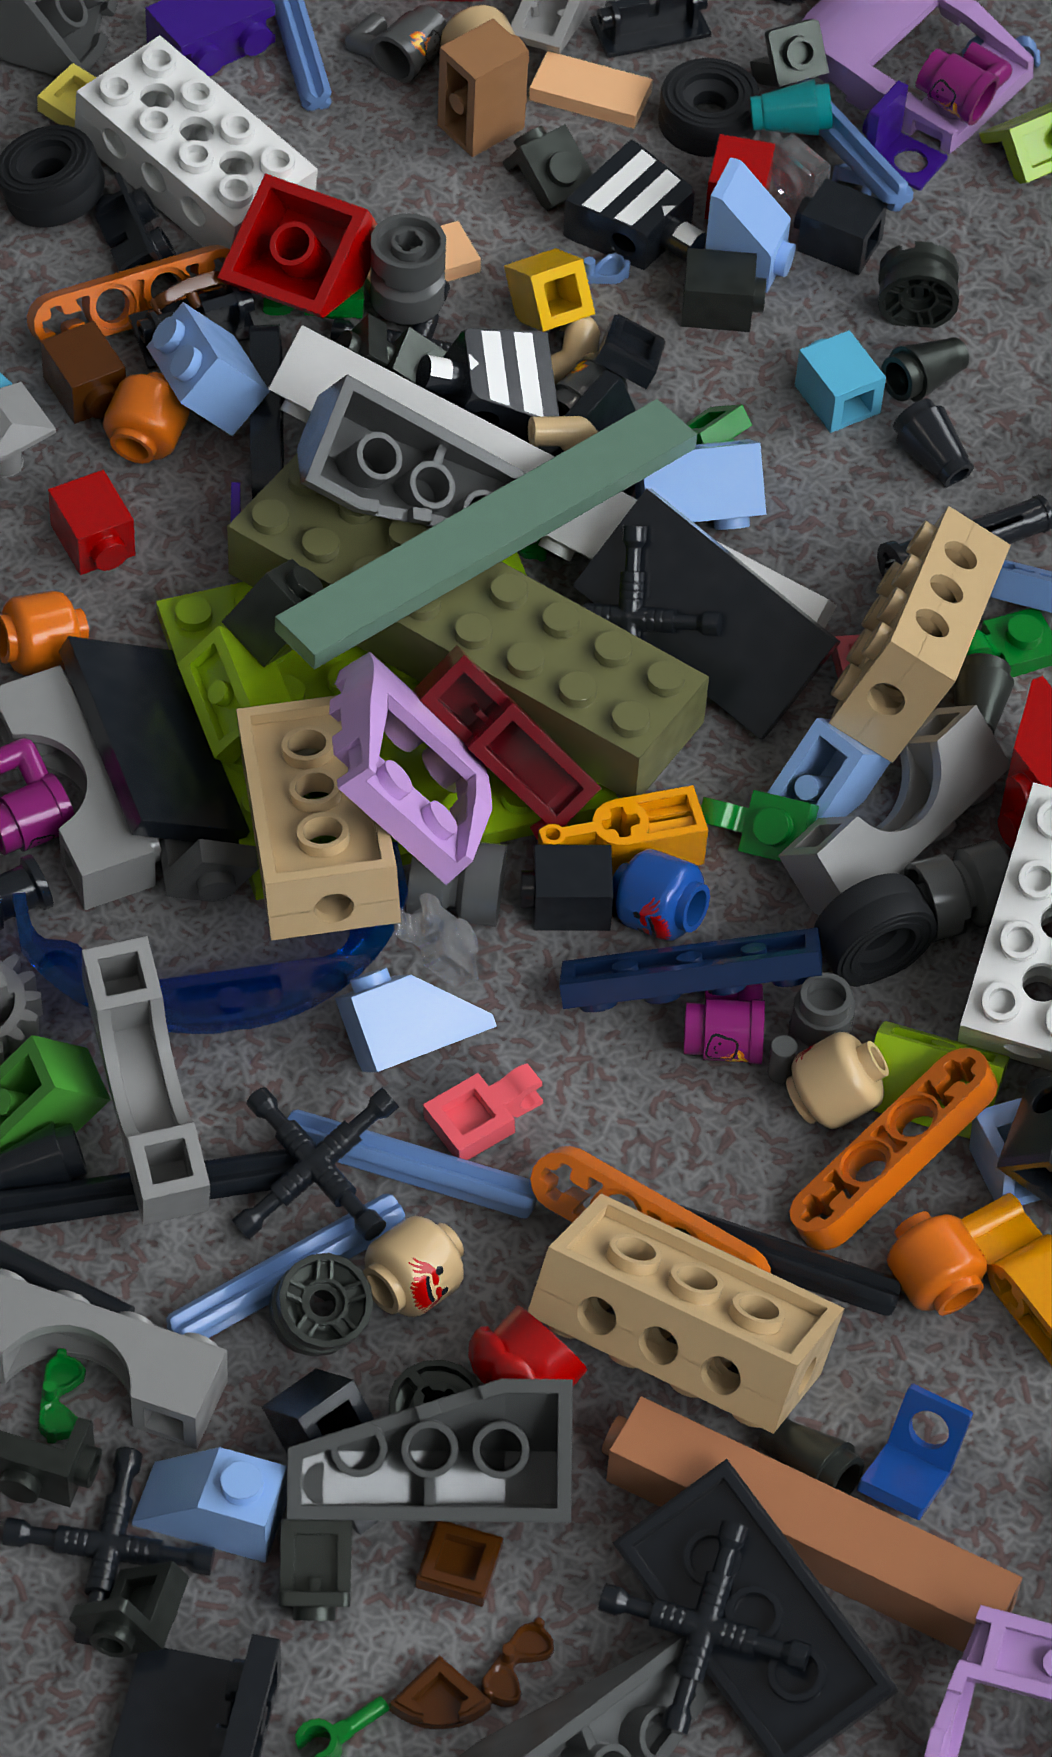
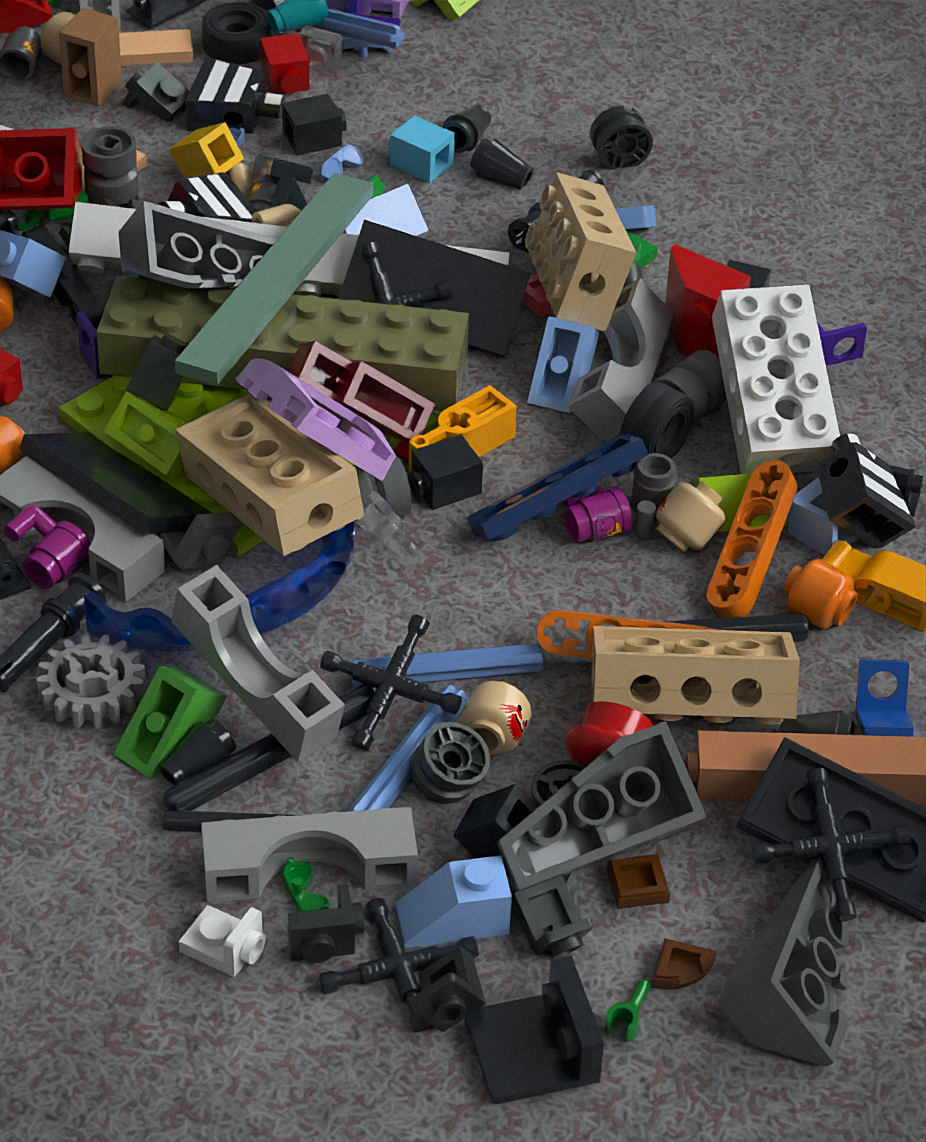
camera: 25 degrees left, 10 degrees down
(404, 1018) = (391, 579): light blue slope -> none
(479, 1115) = (473, 621): coral plate -> none
(528, 1645) = (713, 912): reddish brown piece -> none
(660, 895) = (507, 456): blue head -> none
(709, 366) = (348, 156): none -> medium blue piece
(749, 221) = (311, 74): light blue slope -> none
(766, 825) = (546, 397): green plate -> none
(840, 226) = (363, 69): black brick -> none
(918, 285) = (436, 83): pearl dark grey wheel -> none

